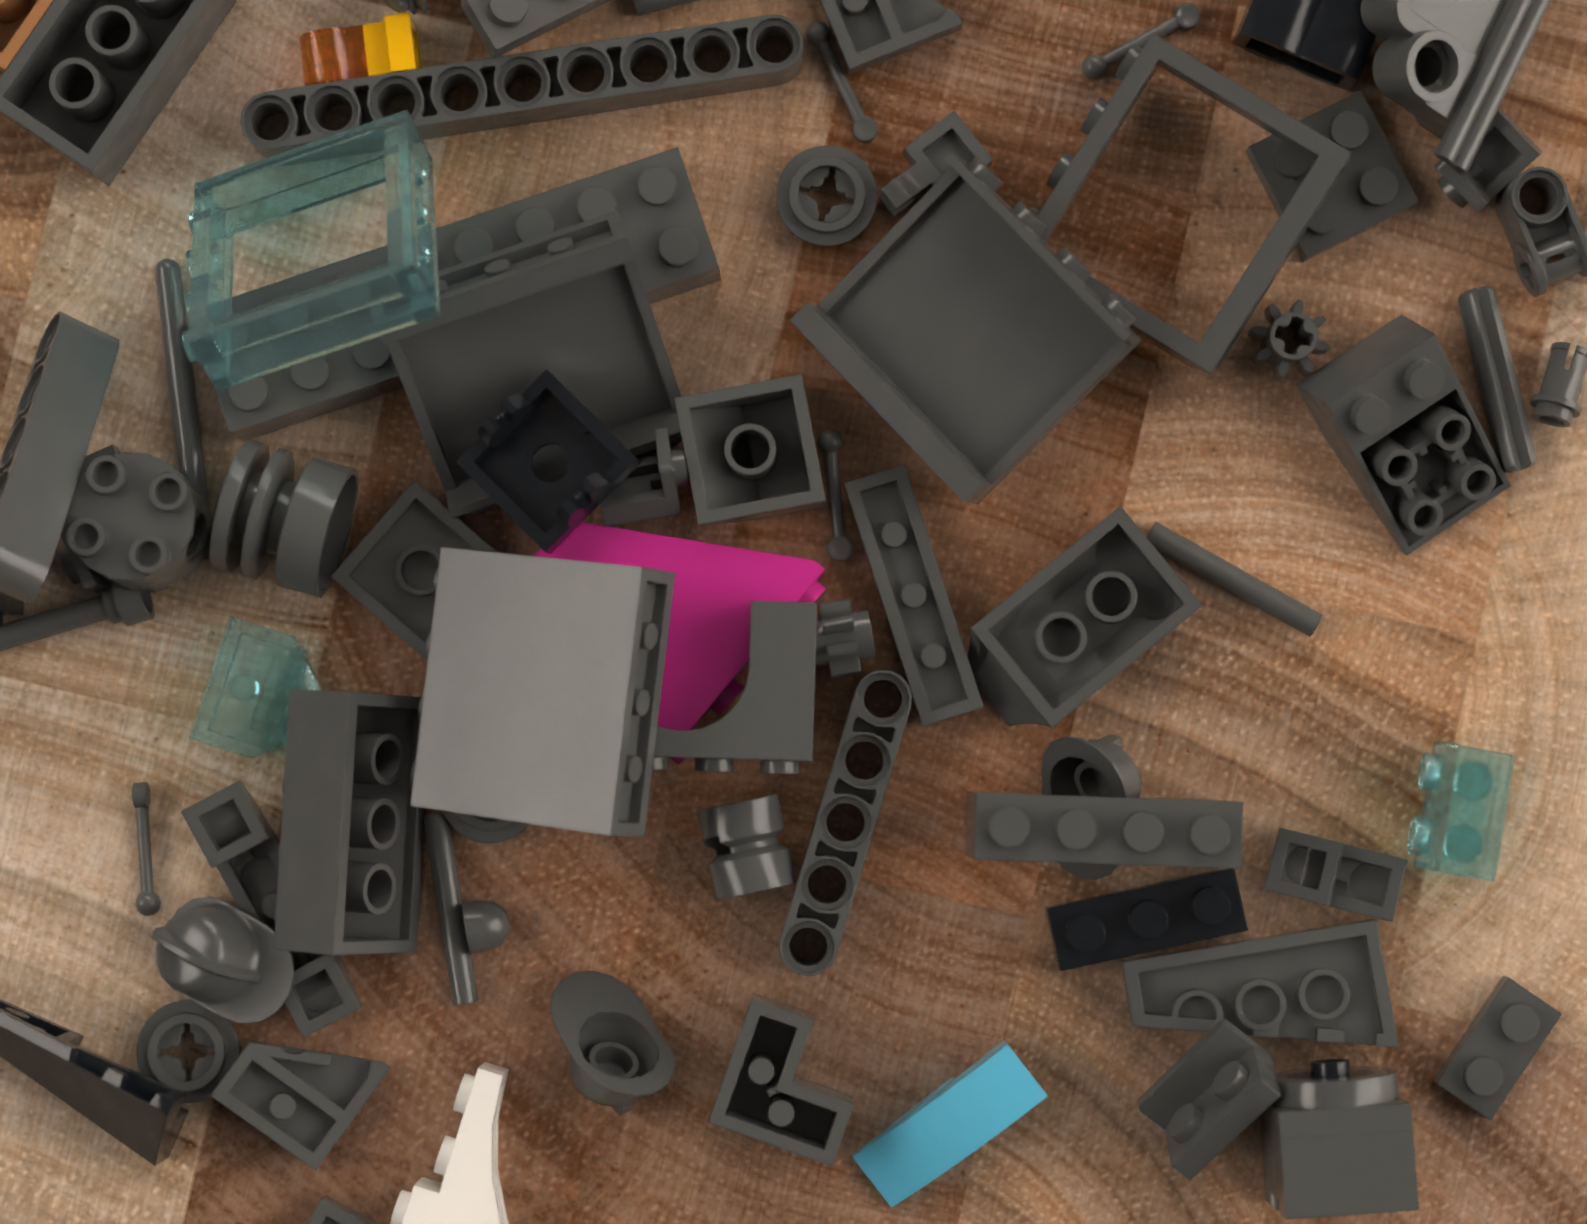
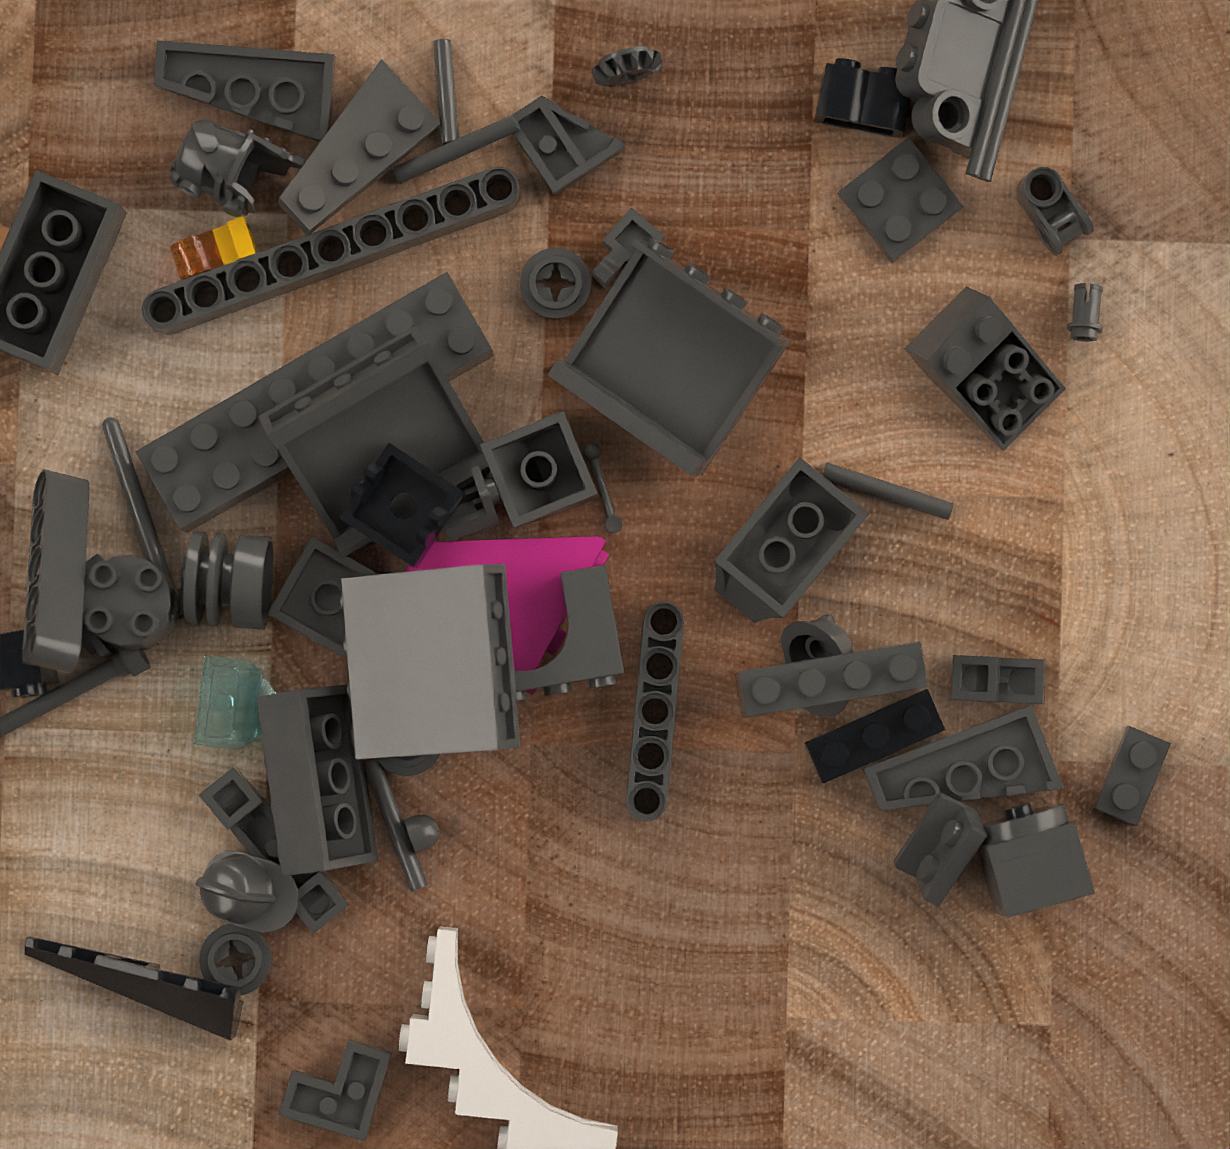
camera: 15 degrees left, 0 degrees up
(147, 901) = (186, 863): dark grey hinge -> none
(298, 1095) = (318, 974): dark grey wing -> none
(334, 313) = (235, 437): clear light blue window -> none
(610, 1040) = (525, 893): dark grey piece -> none
(746, 846) = (590, 741): dark grey wheel -> none
(765, 1096) = (636, 908): dark grey brick -> none
(843, 638) = (628, 585): dark grey gear -> none
(864, 127) = (571, 230): dark grey hinge -> none
(913, 595) = (670, 546): dark grey plate -> none
(949, 1124) = (767, 903): medium azure slope -> none
(1101, 127) = (871, 258): dark grey window -> none
(1184, 18) = (777, 111): dark grey hinge -> none
(1304, 332) = (883, 327): dark grey gear -> none
(1461, 810) = (1075, 618): clear light blue bracket -> none
(1497, 379) = (1041, 317): dark grey axle -> none
(1499, 160) = (1011, 167): dark grey bracket -> none

